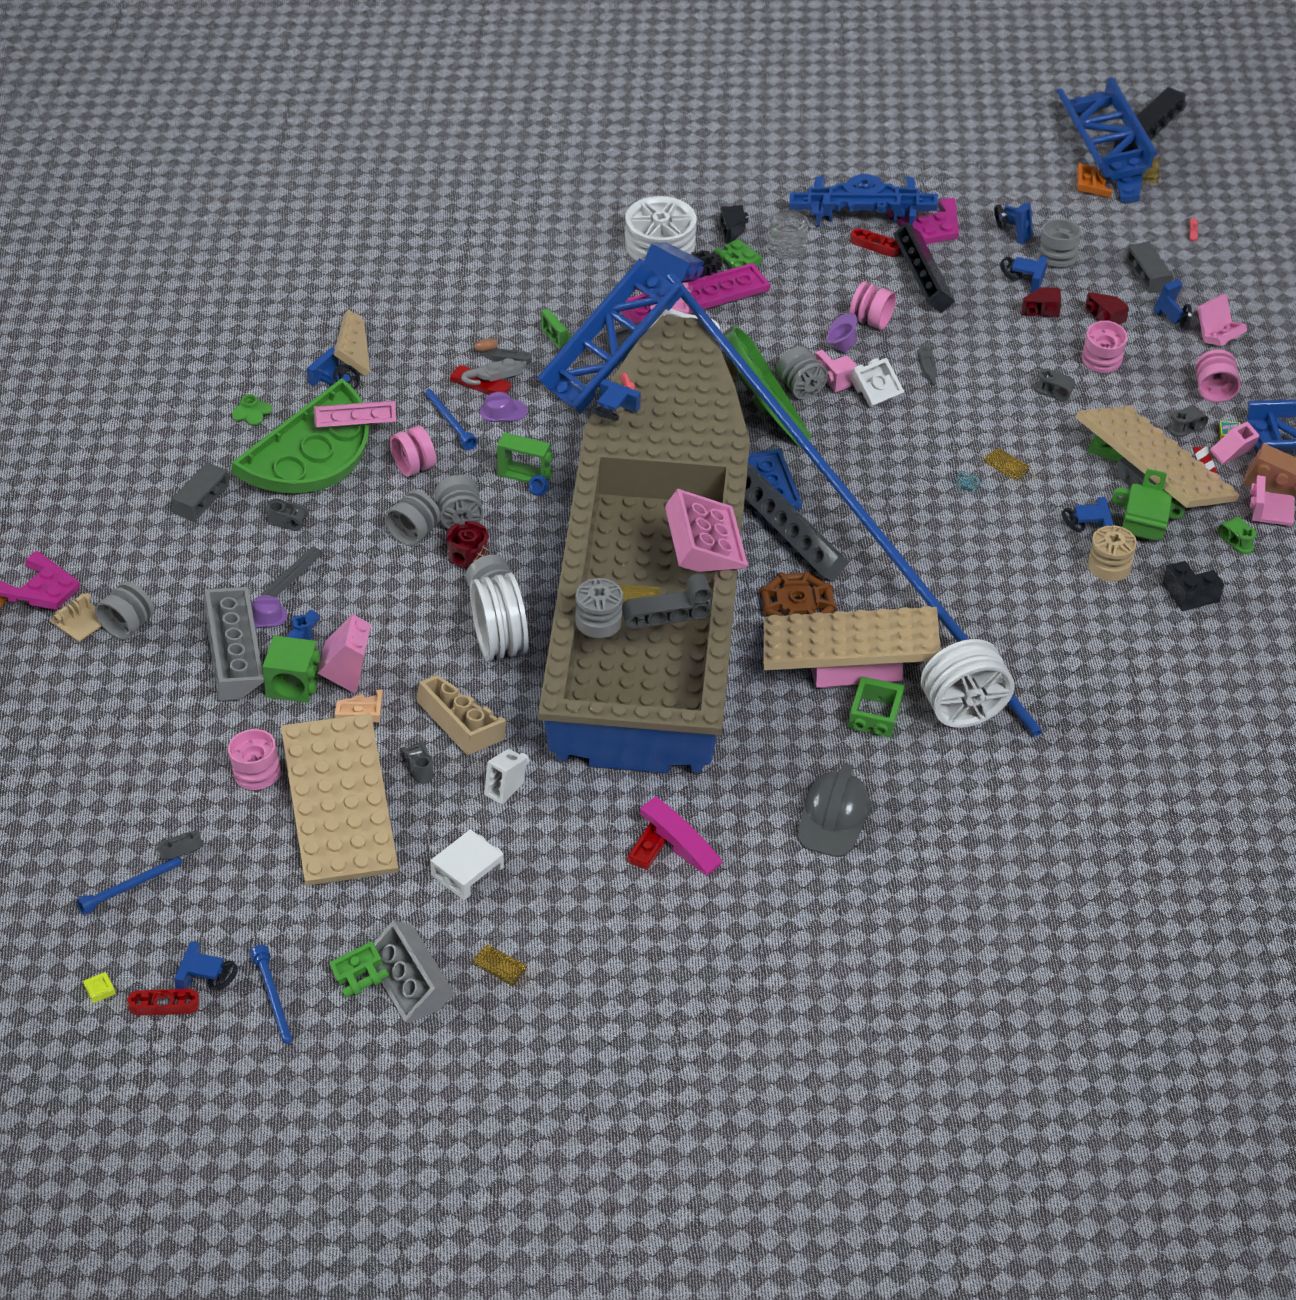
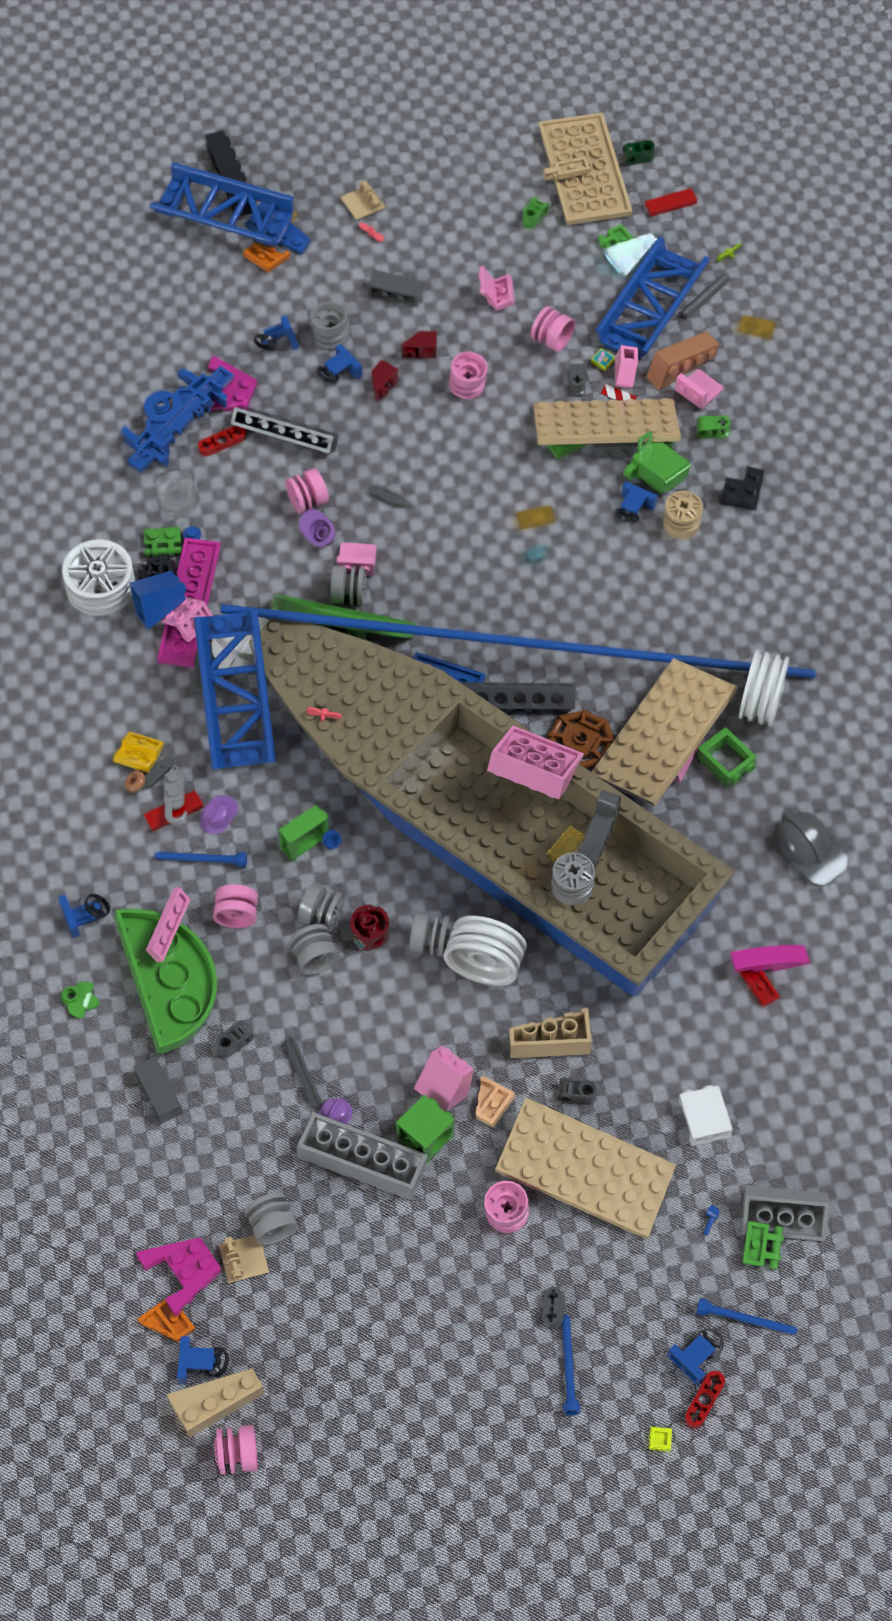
camera: 55 degrees left, 15 degrees up
(303, 625) = (373, 1090): blue axle -> none
(352, 343) = (58, 878): tan wing -> none
(368, 921) = (713, 1213): none -> blue hand
(499, 965) = (810, 1147): clear yellow tile -> none
(505, 775) = (636, 1039): white torso -> none
(518, 335) = (138, 751): none -> yellow slope
(554, 329) = (160, 722): bright green bracket -> none
(615, 395) = (341, 731): blue piece -> none
(733, 221) = (122, 521): black slope -> none
(764, 267) = (192, 532): none -> blue plate
(876, 382) = (390, 543): white plate -> none
(1056, 385) = (479, 431): dark grey piece -> none
(1167, 305) = (461, 307): blue piece -> none
(1219, 210) = (363, 201): none -> tan hinge

